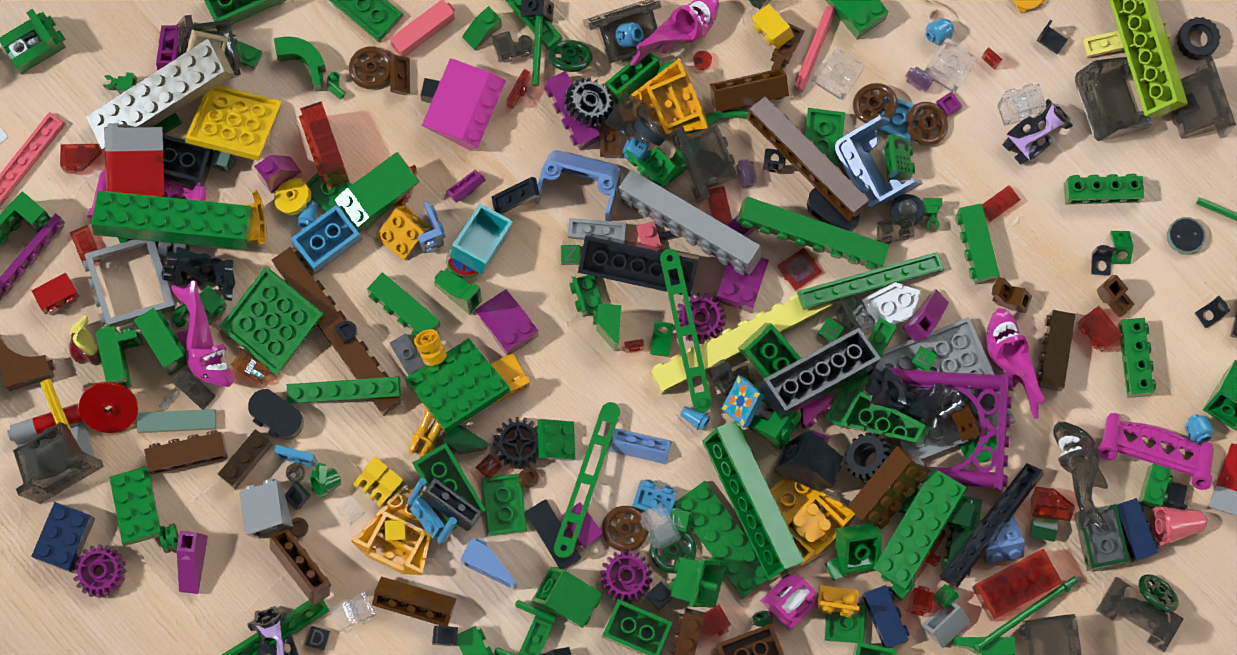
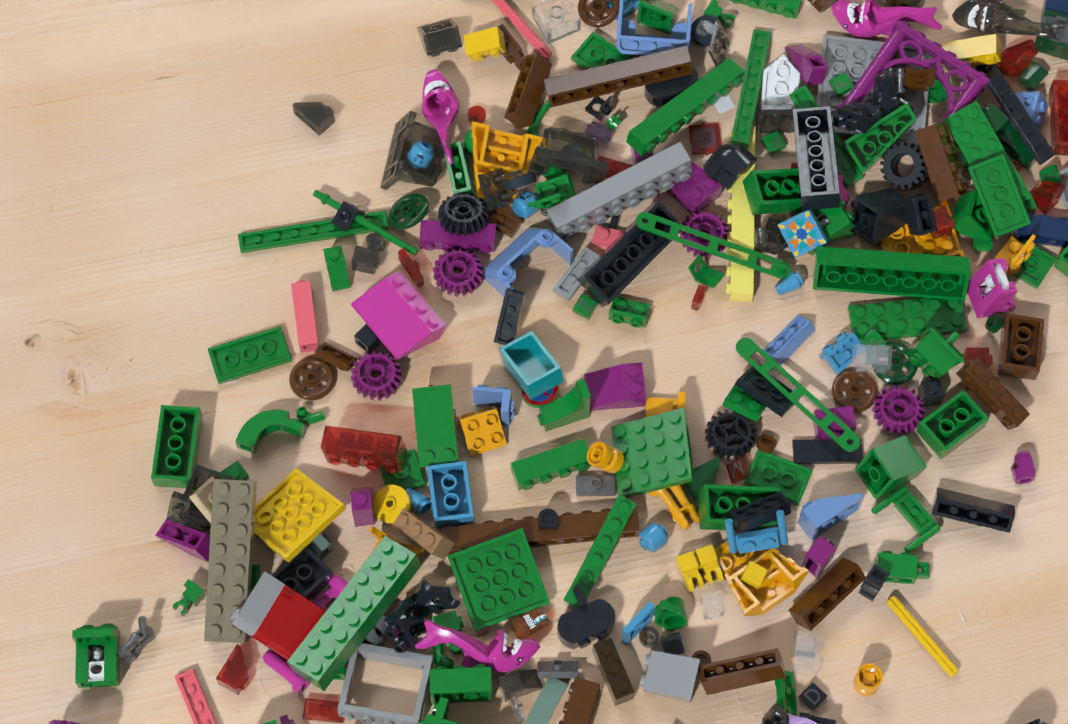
camera: 55 degrees left, 10 degrees down
(63, 65) = (140, 637): none -> flat silver piece
(223, 413) = (557, 669): none -> flat silver plate
(275, 236) = (423, 534): none -> medium nougat brick
(292, 394) = (578, 592): none -> black tile
(384, 428) = (653, 537): none -> dark azure head
(401, 106) = (379, 386): none -> magenta gear
(443, 577) = (819, 556): none -> magenta piece
(465, 186) = (472, 356): magenta plate -> none
(538, 141) = (462, 282): none -> magenta gear
(573, 450) = (763, 391): none -> black tile
(607, 319) = (670, 304): green slope -> none
(765, 180) = (614, 121): none -> green plate
(775, 301) = (729, 164): none -> black brick
(819, 494) = (919, 214): none -> black brick
(825, 518) = (943, 222): none -> clear red brick
(845, 267) = (724, 104): none -> white sticker
(886, 557) = (999, 195): none -> green plate
(1029, 460) = (976, 50): none -> yellow brick

